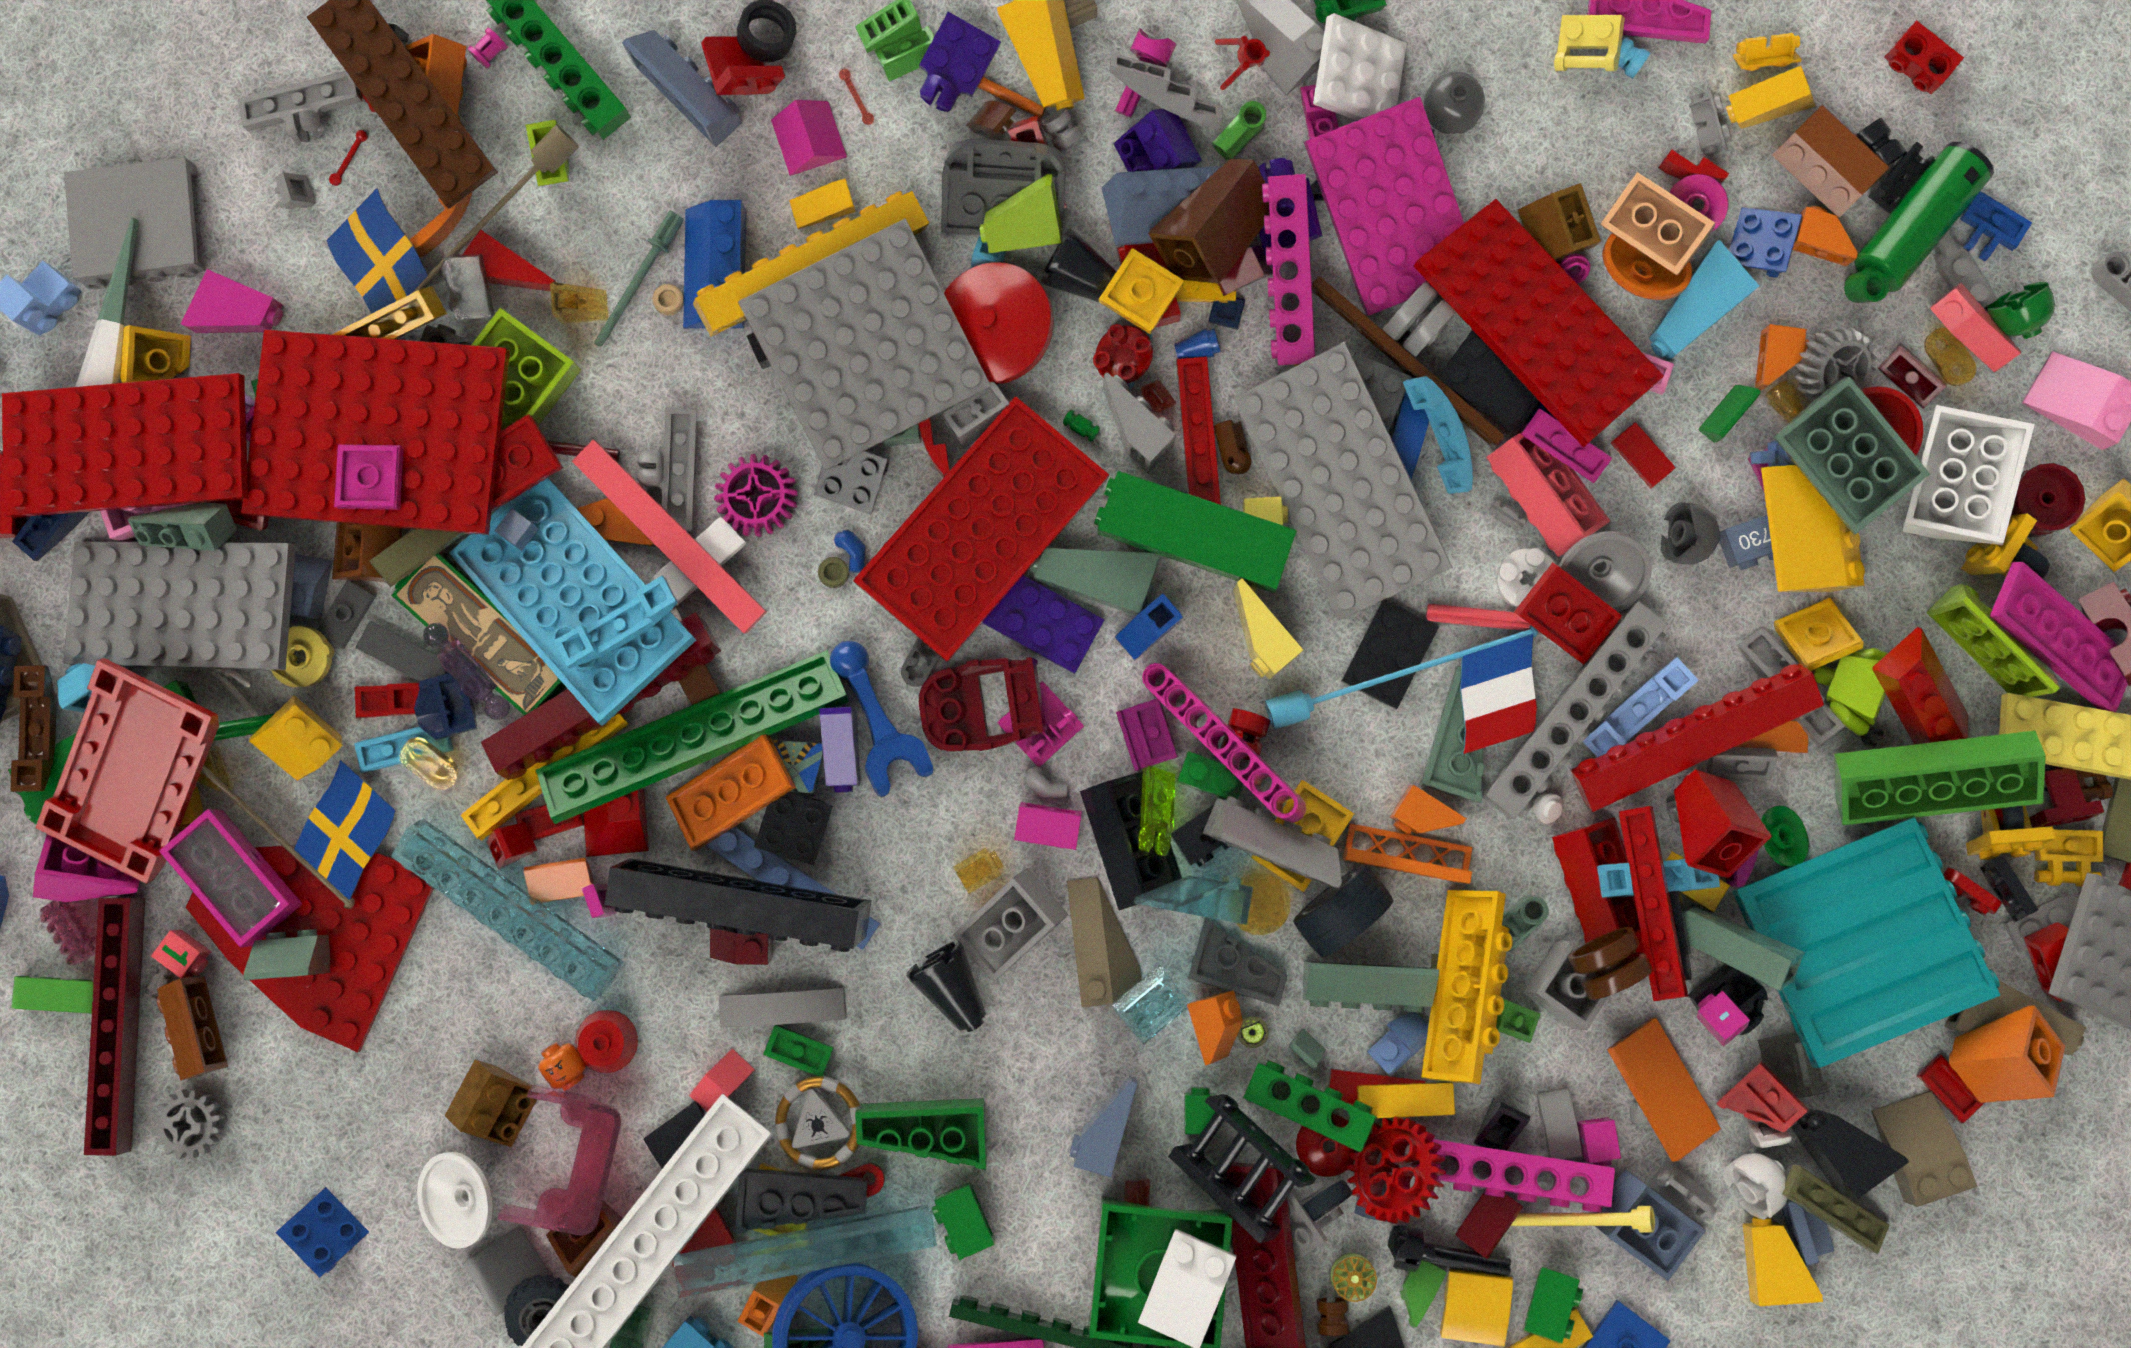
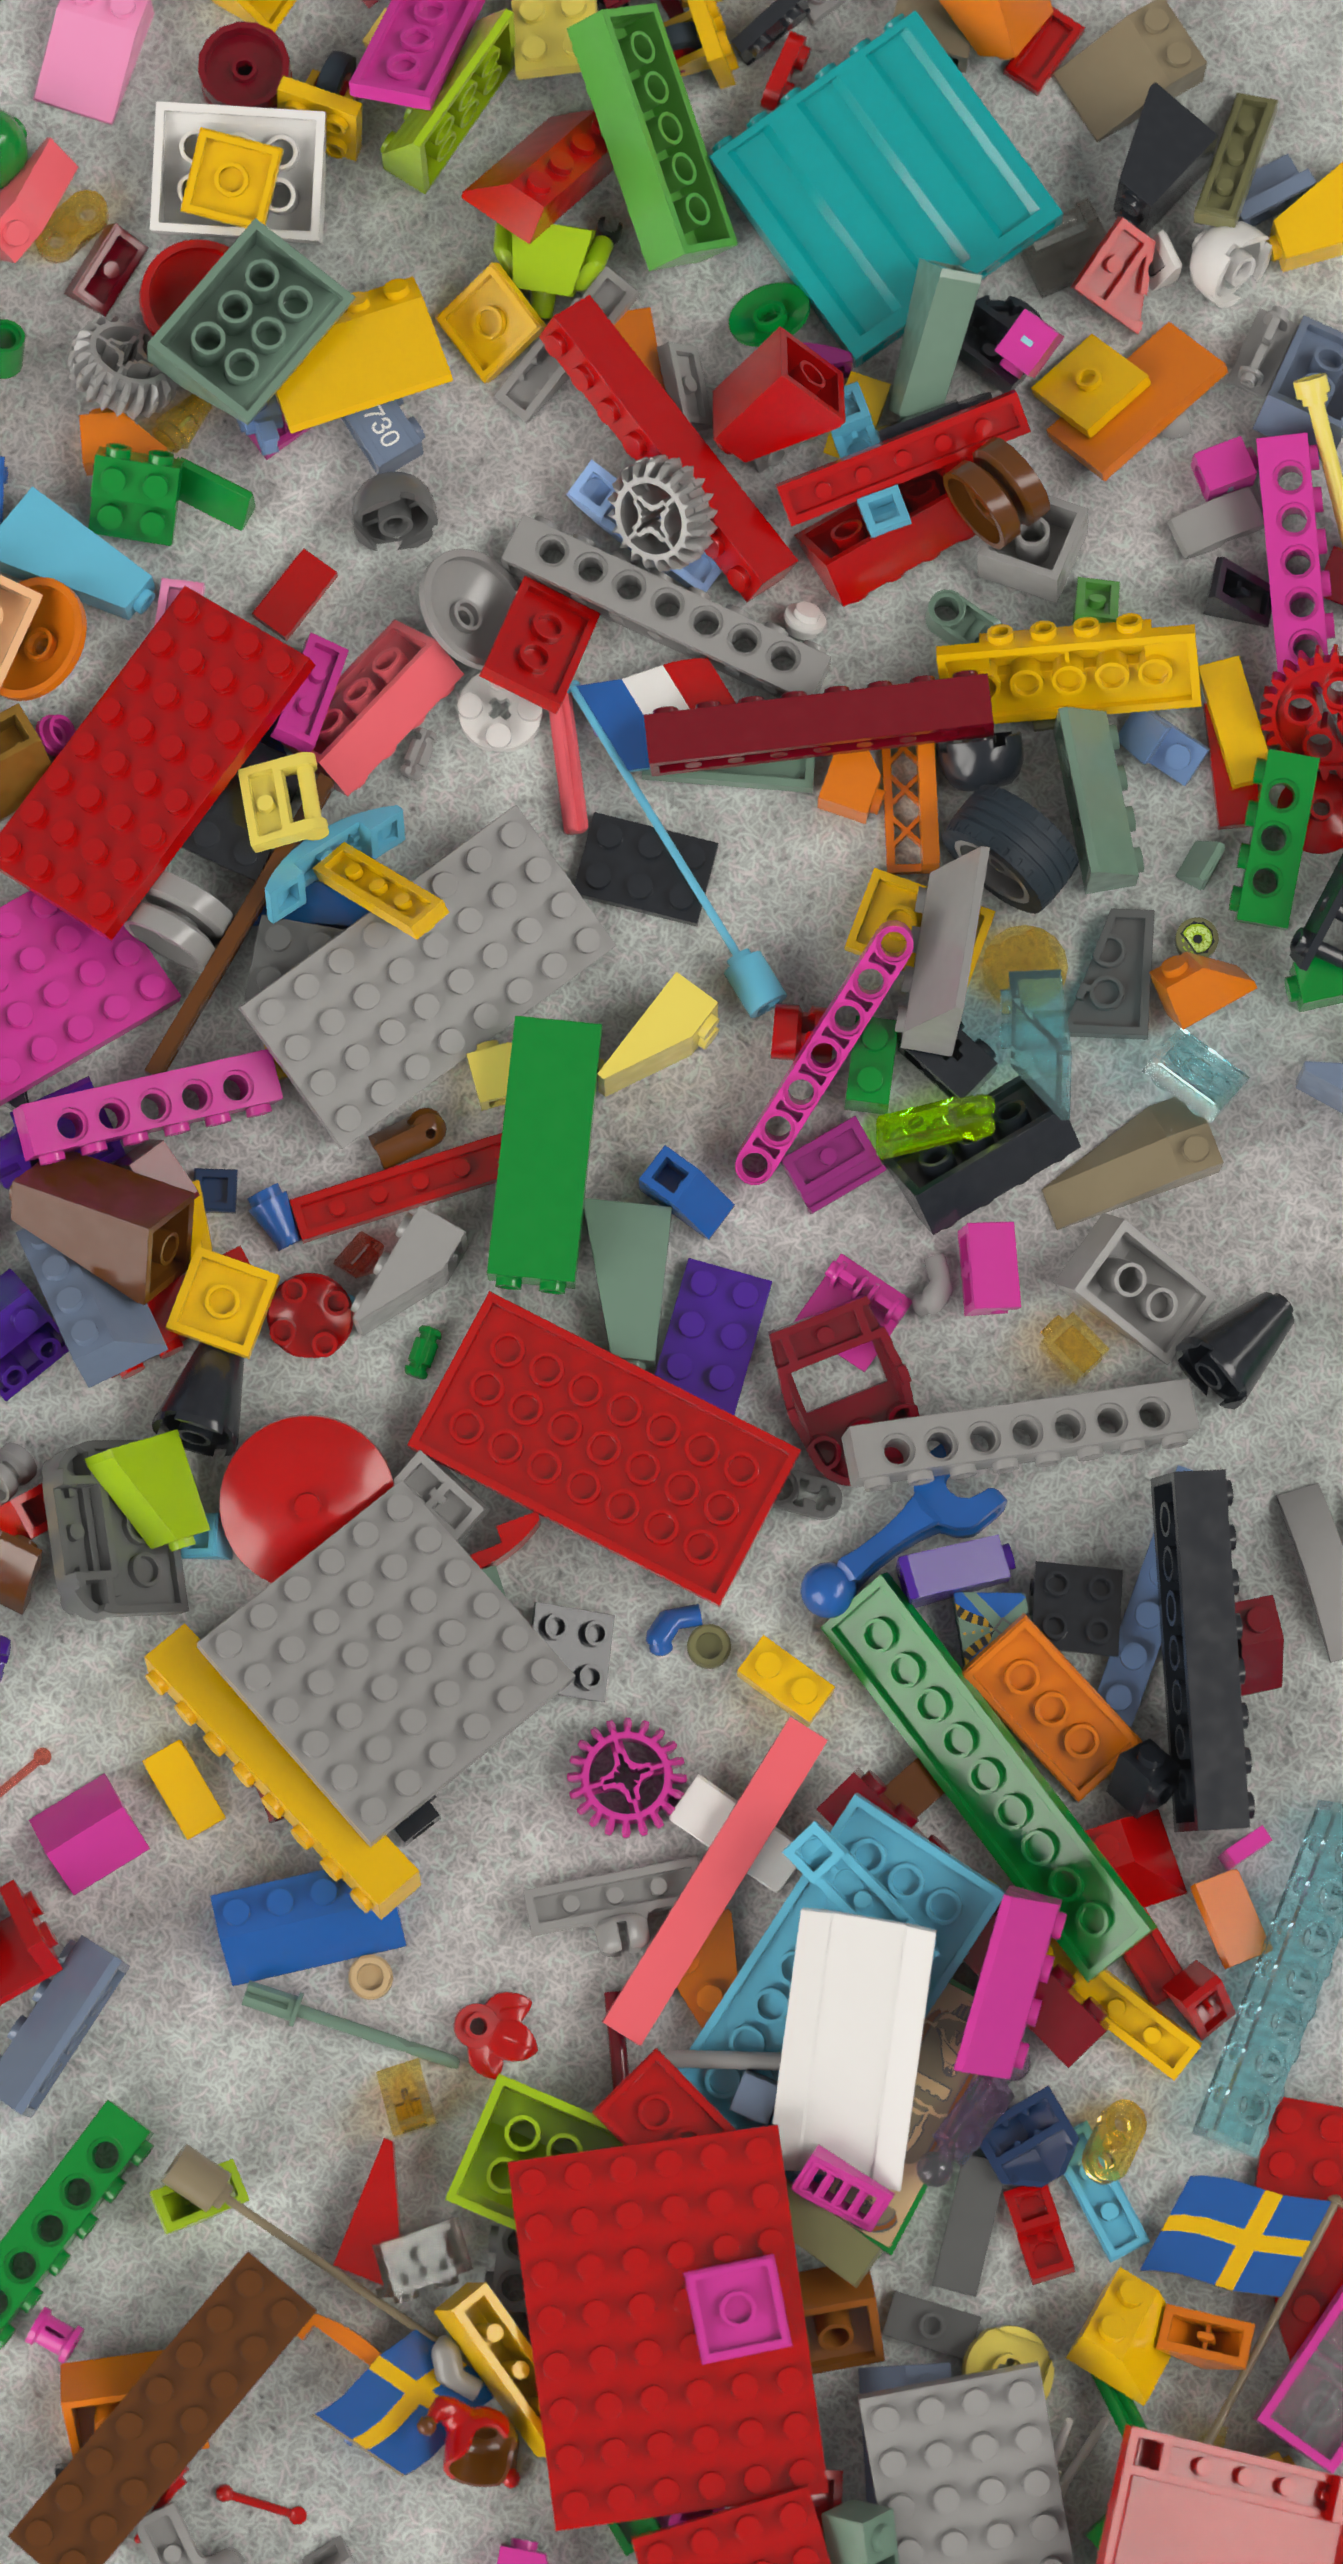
camera: 105 degrees left, 5 degrees down
(281, 791) = (1205, 2339): none -> orange slope
(340, 295) = (478, 2443): none -> piece
(392, 290) = (449, 2368): none -> light grey arm
(453, 561) = (821, 2196): none -> dark pink slope
(524, 595) = (853, 2041): none -> white hinge
(539, 711) = (1009, 1983): none -> dark pink slope
(540, 534) = (724, 2059): none -> light grey bar
(608, 377) = (502, 2035): none -> red plate
(665, 843) = (1143, 1778): none -> black brick
(793, 616) = (785, 1681): none -> yellow brick
(923, 927) = (1168, 1401): none -> light grey brick
(1407, 456) = (381, 890): none -> yellow plate
(1415, 909) = (982, 760): none -> black cylinder
(1465, 796) = (819, 723): none -> dark red brick
(1488, 394) = (269, 805): none -> light yellow plate
(1647, 719) = (640, 502): none -> light grey gear
(1682, 1058) = (1091, 386): none -> yellow plate
(1739, 356) = (135, 494): none -> green plate
(1963, 467) = (231, 178): none -> yellow tile

